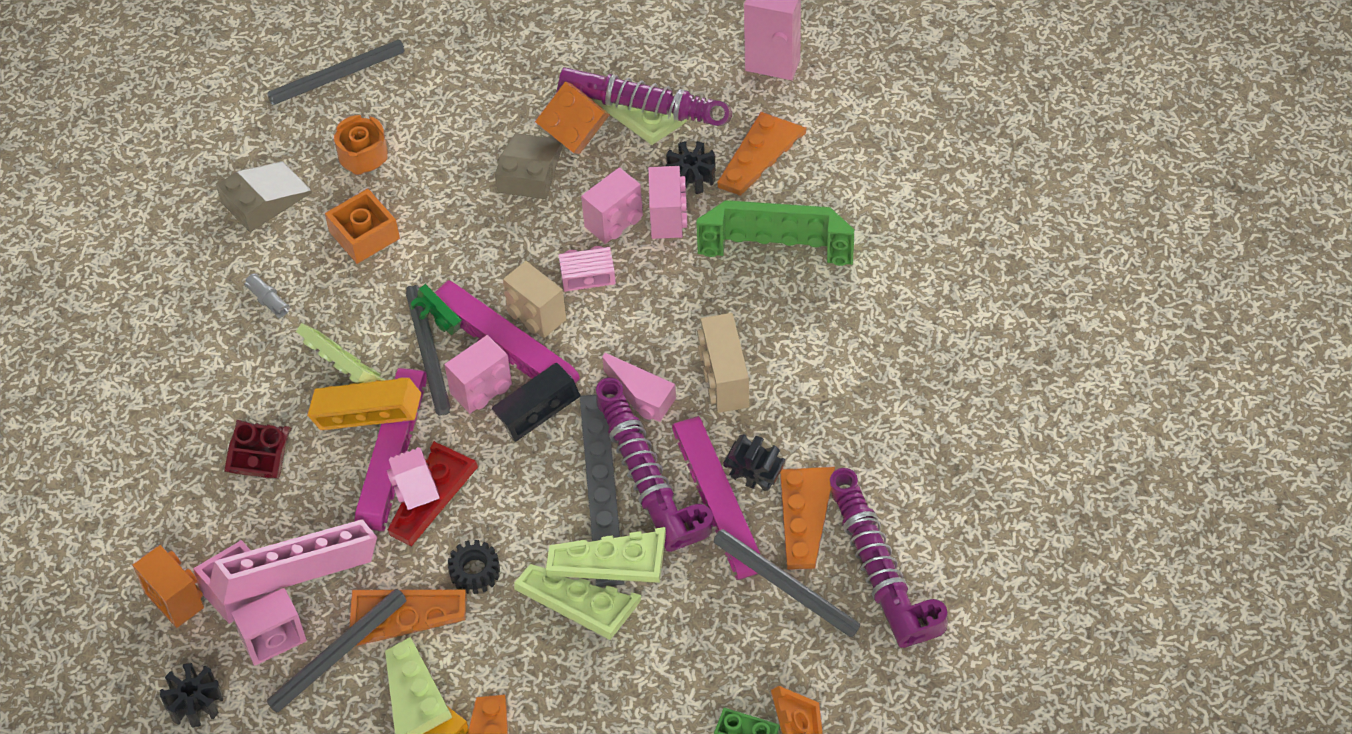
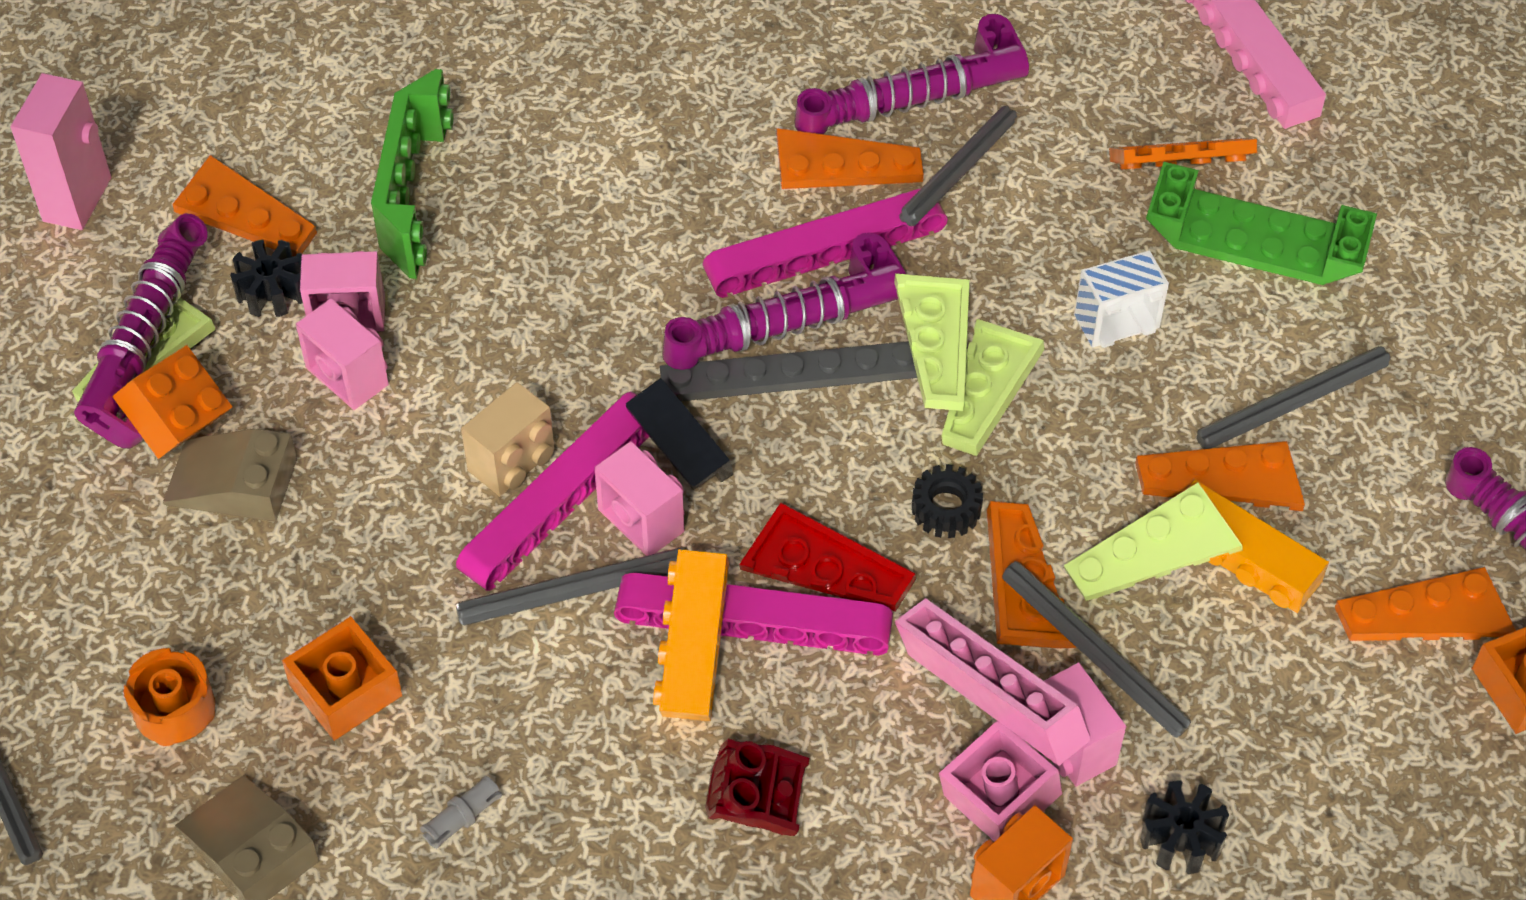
camera: 95 degrees left, 0 degrees up
(343, 360) = (619, 659): yellowish green wing -> none
(413, 479) = (835, 551): bright pink brick -> none
(444, 317) = (514, 566): green plate -> none
(587, 268) = (441, 391): bright pink brick -> none
(639, 684) = (1121, 299): none -> white container
(644, 391) = (645, 330): bright pink slope -> none
(723, 363) = (627, 223): tan piece -> none
(754, 462) = (785, 192): black gear -> none

